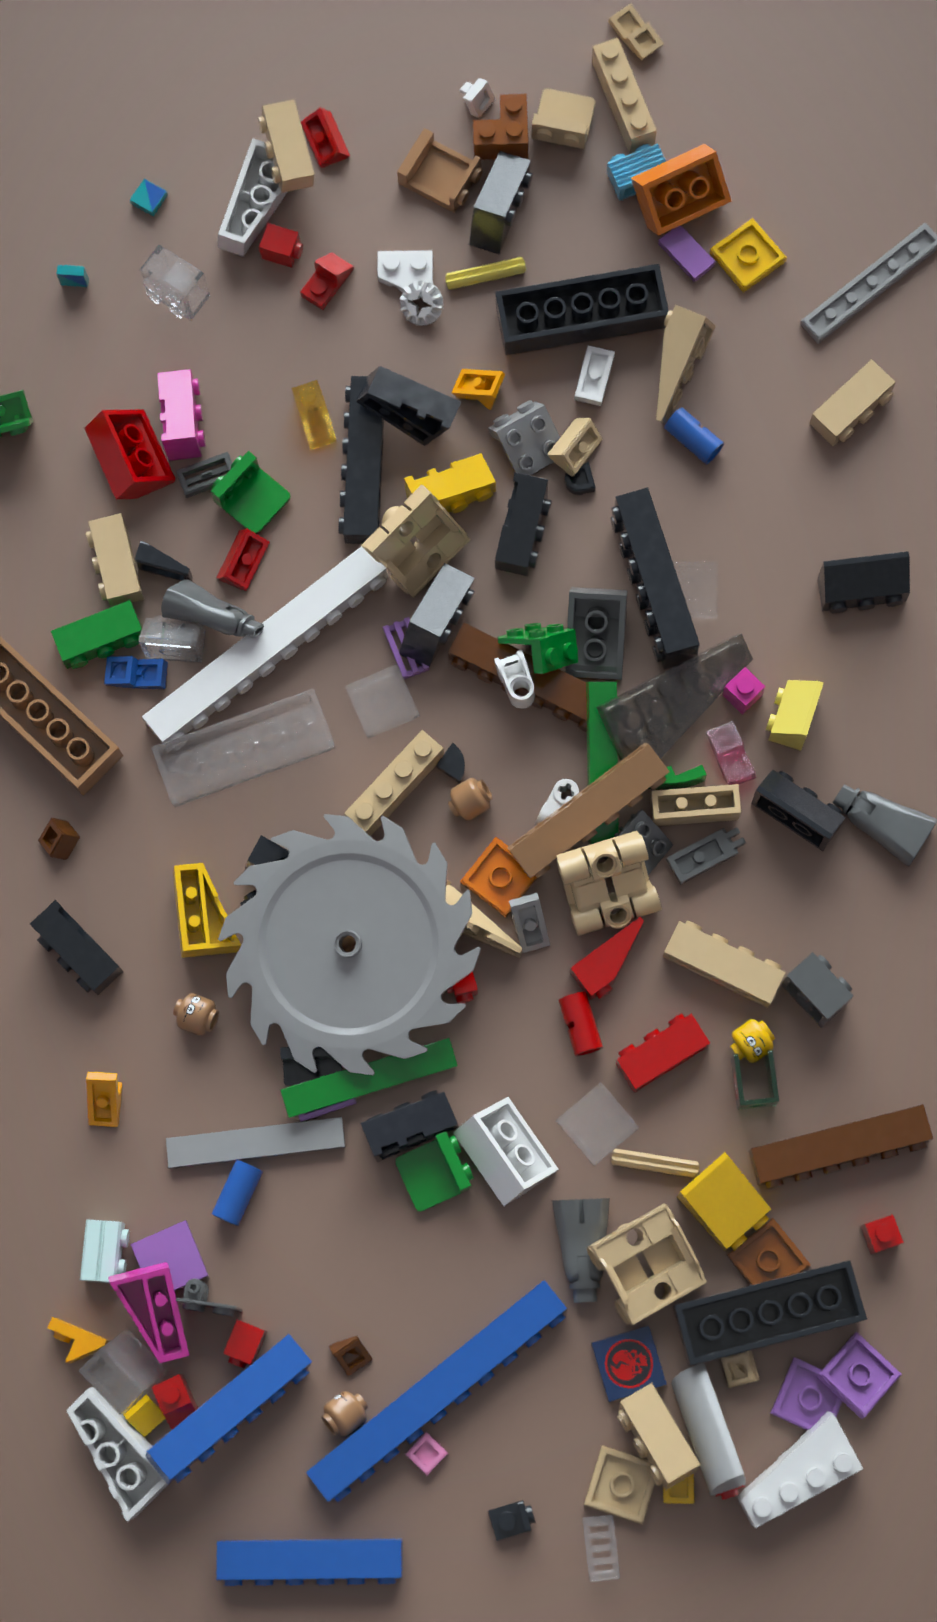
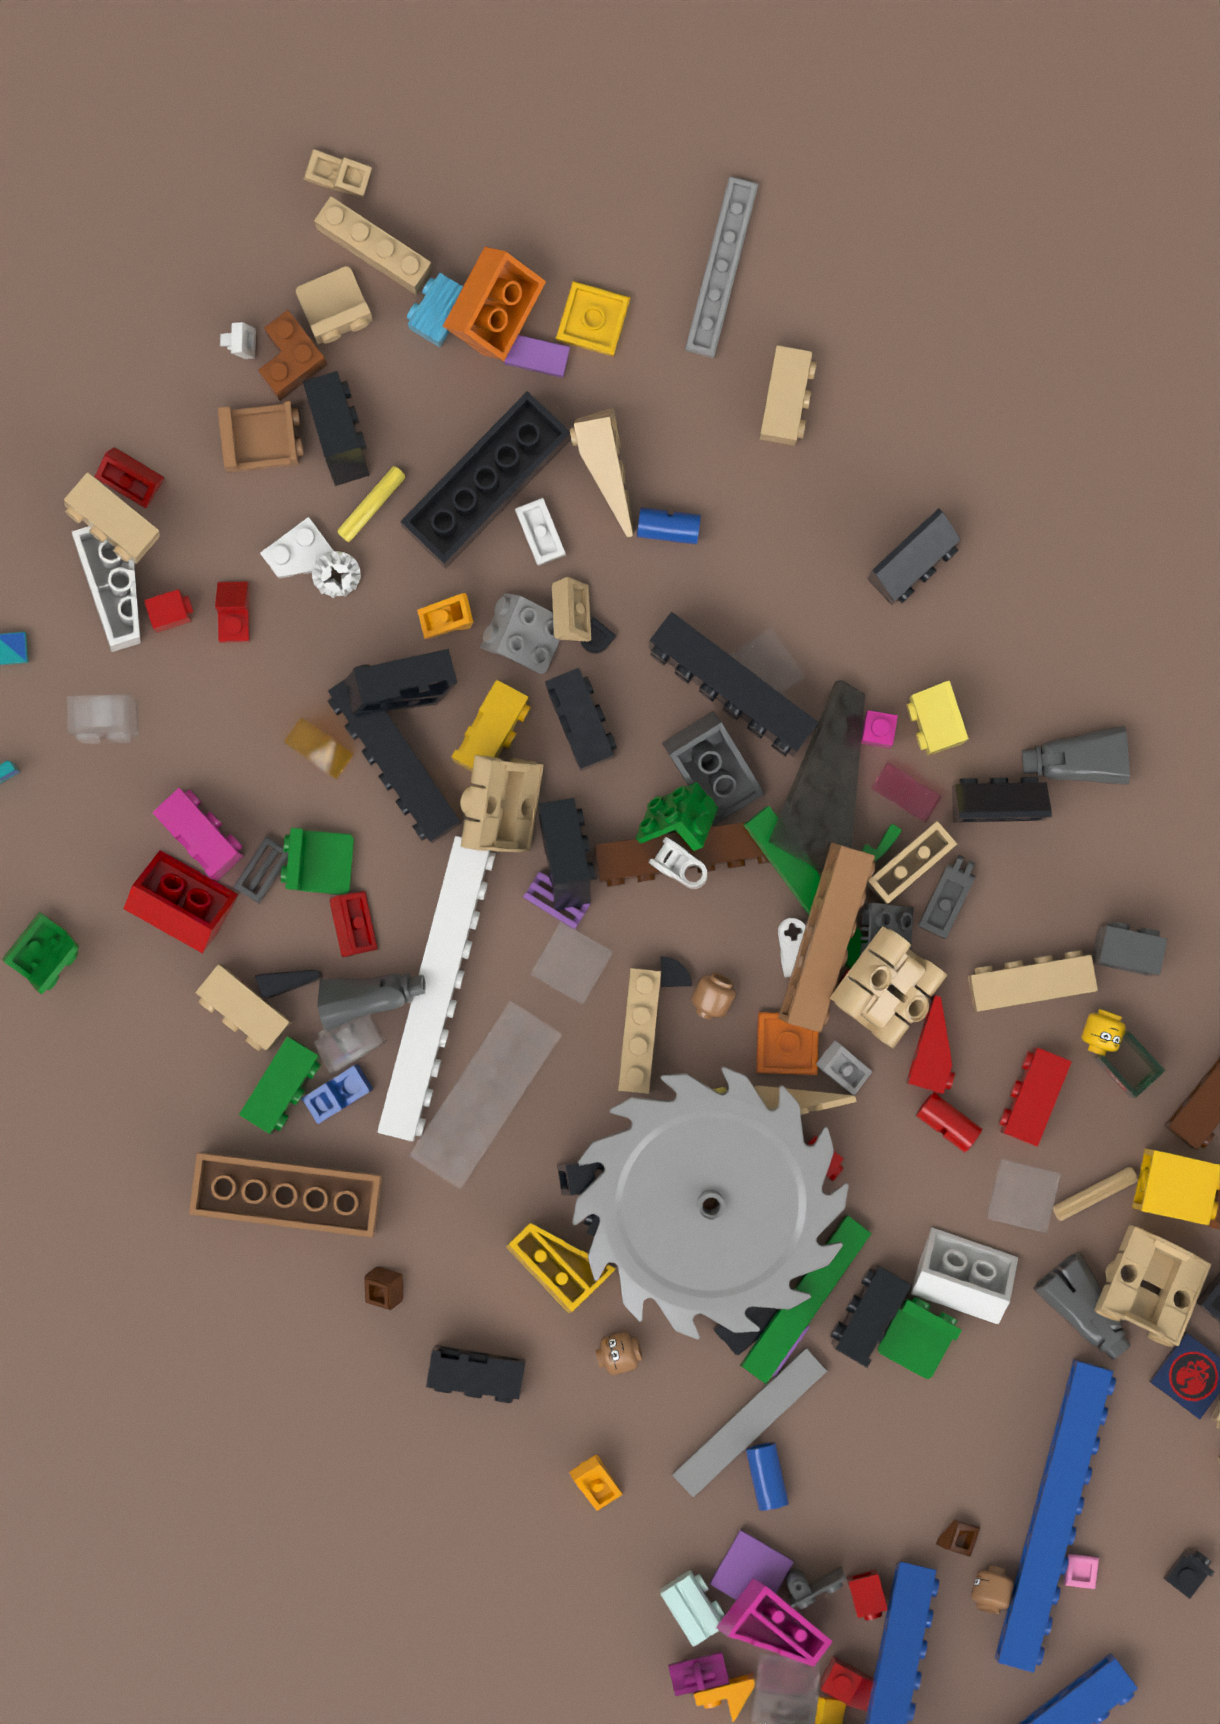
camera: 40 degrees left, 10 degrees up
(68, 1305) = (698, 1674): none -> magenta hips

